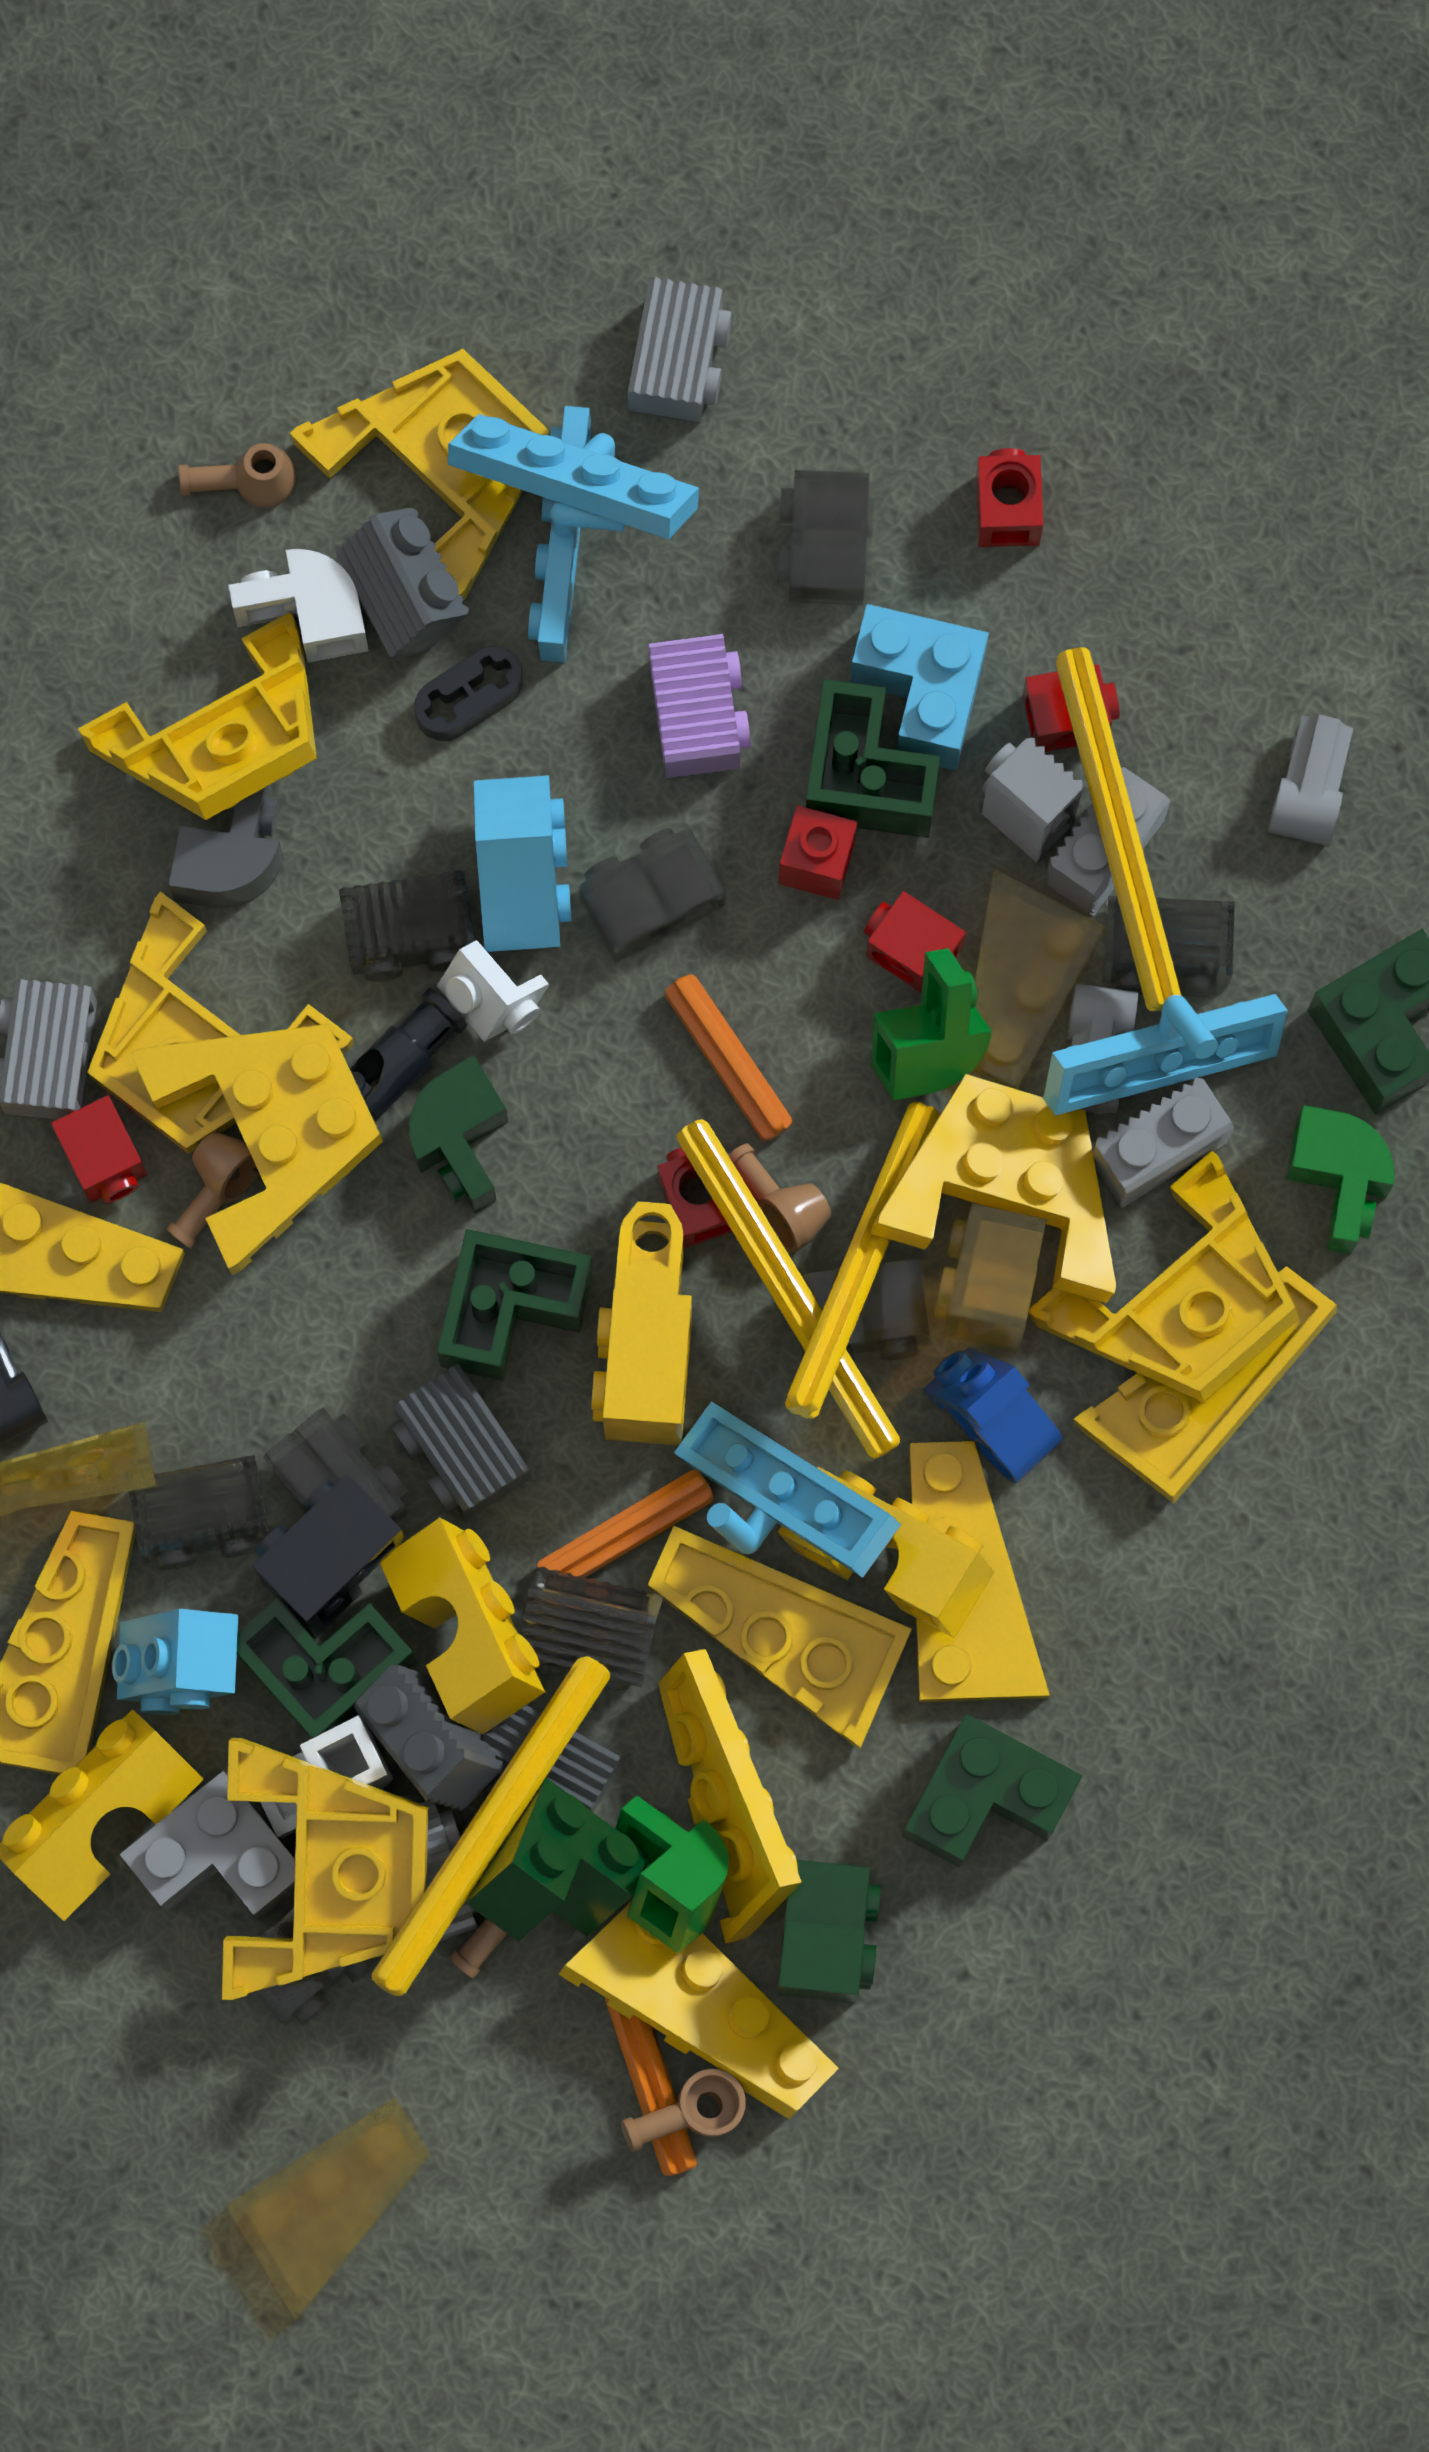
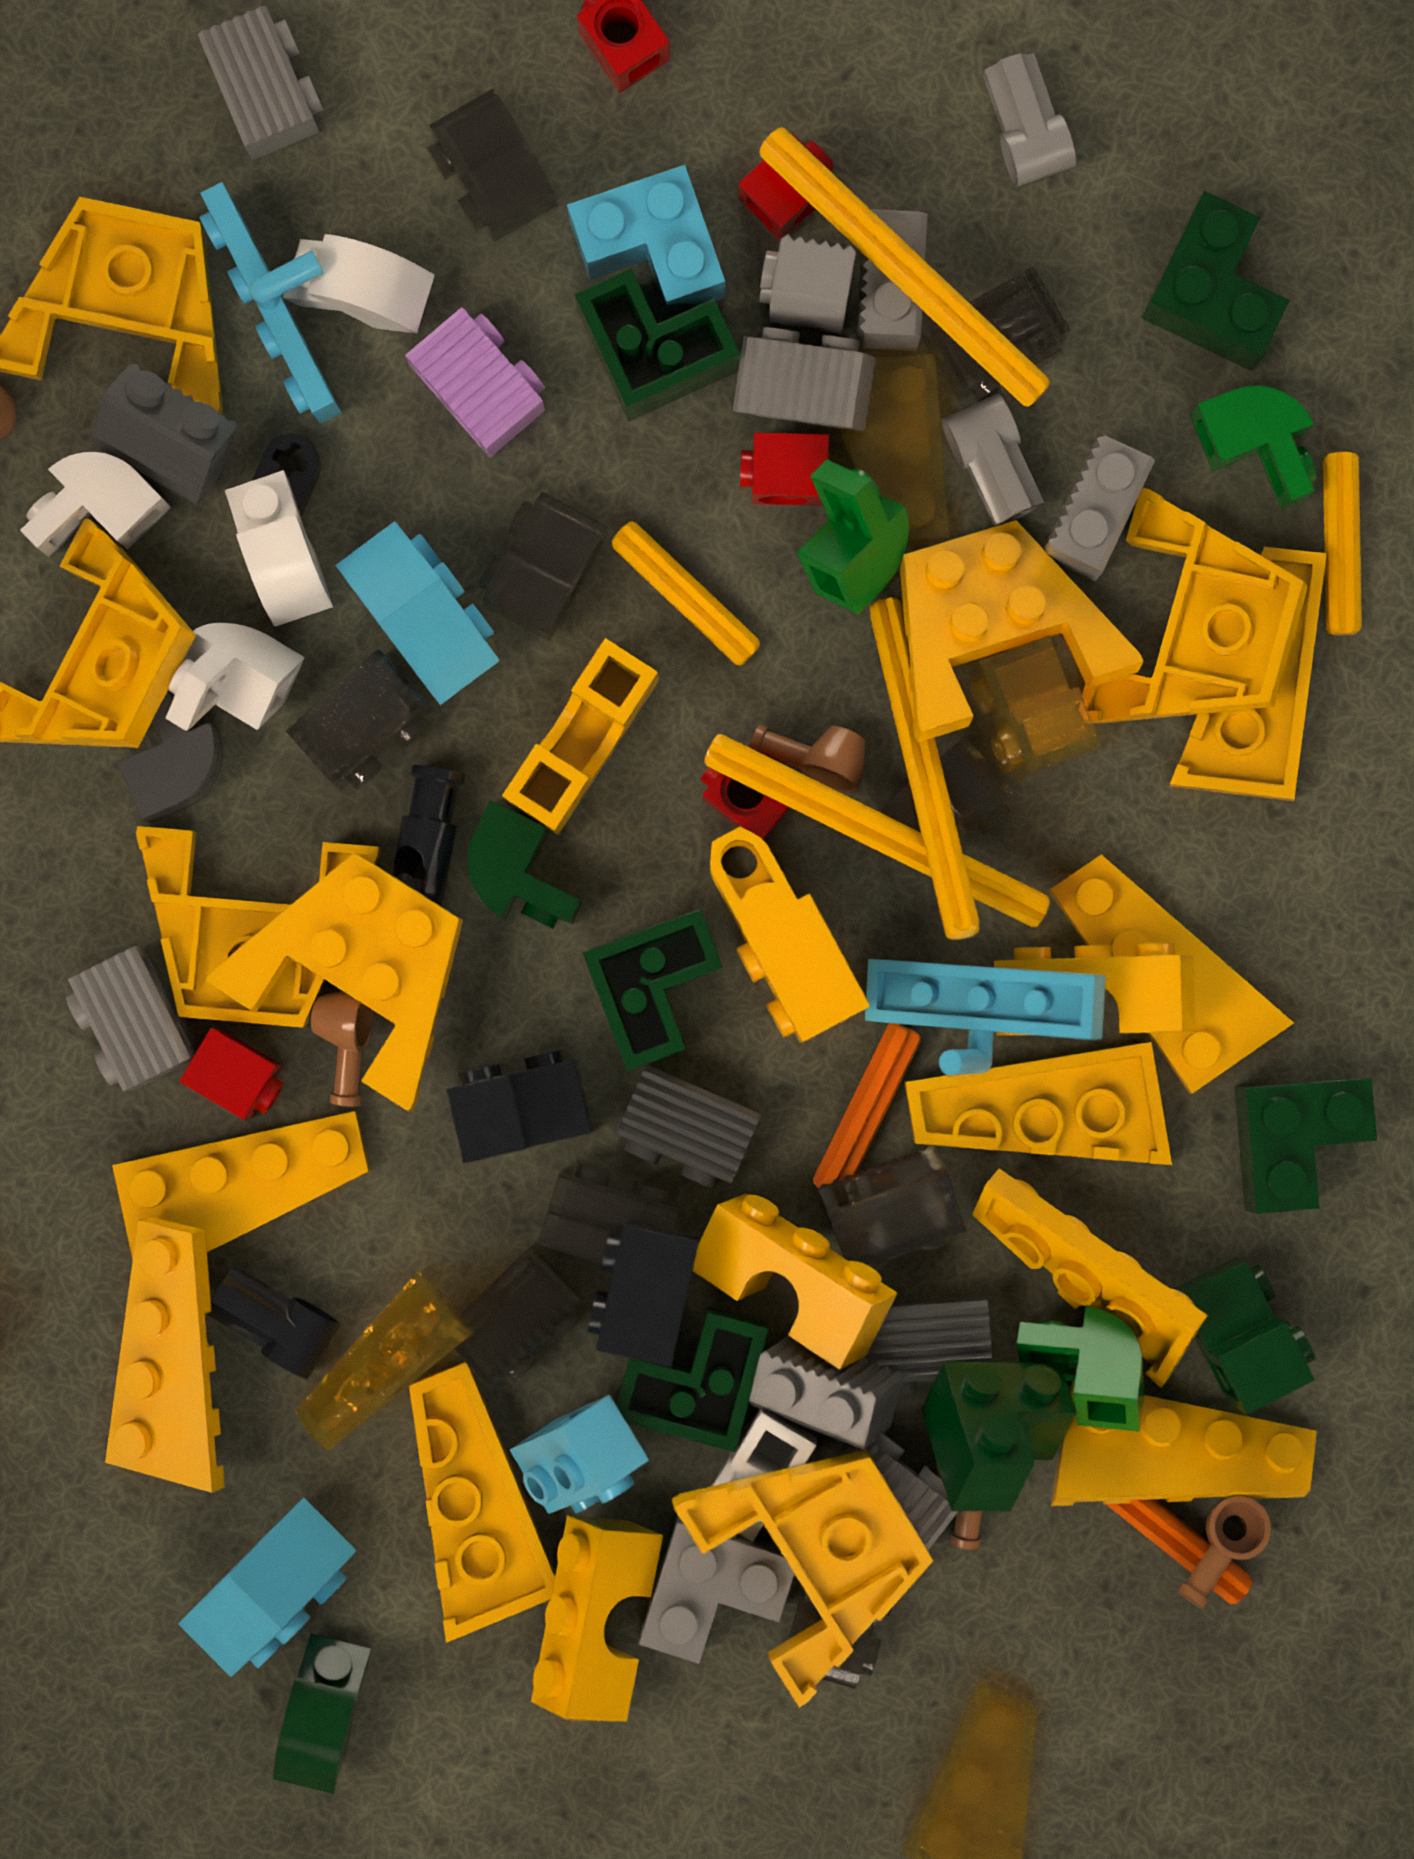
camera: 30 degrees left, 10 degrees up
(322, 1336) = (518, 1109): none -> black brick
(330, 814) = (234, 670): none -> white brick
(433, 737) = (277, 549): none -> white brick
(487, 995) = (467, 741): white bracket -> none
(490, 1826) = (927, 1432): yellow axle -> none
(557, 1070) = (583, 736): none -> yellow arch
(574, 476) = (250, 251): medium azure plate -> none
(657, 572) = (364, 284): none -> white brick
(728, 1057) = (696, 663): orange axle -> none
(758, 994) = (685, 593): none -> yellow axle
(817, 852) = (660, 443): red brick -> none
(975, 877) = (804, 381): none -> light grey brick
(994, 1411) = (1102, 819): blue pin -> none
(1165, 1054) = (1067, 422): medium azure plate -> none
(1359, 1310) = (1342, 543): none -> yellow axle

